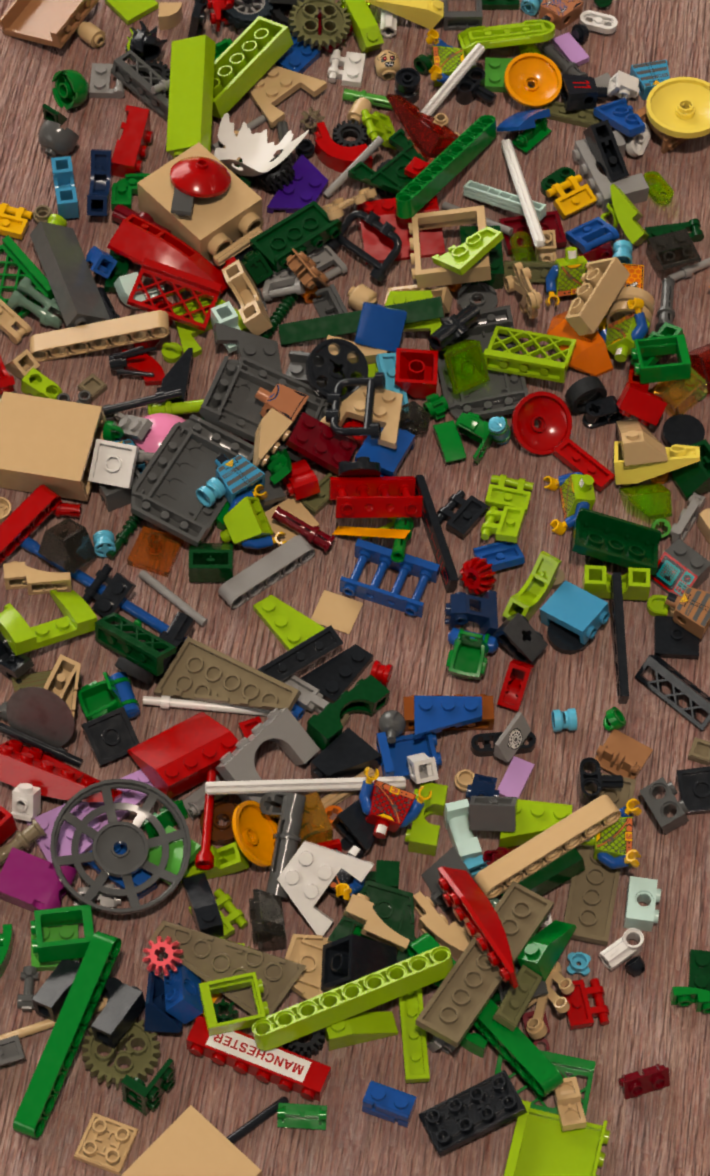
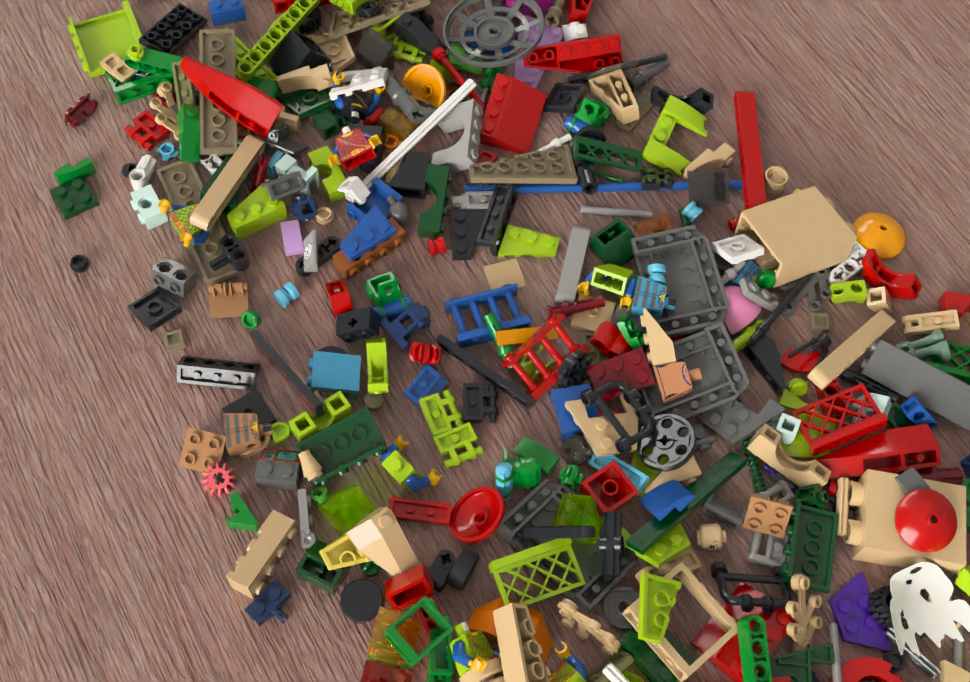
camera: 140 degrees right, 5 degrees up
(235, 949) = (369, 9): none -> black gear
(496, 353) = (558, 532): none -> black beam
(546, 1072) = (138, 55): none -> lime plate
(656, 542) = (311, 468): none -> tan cone

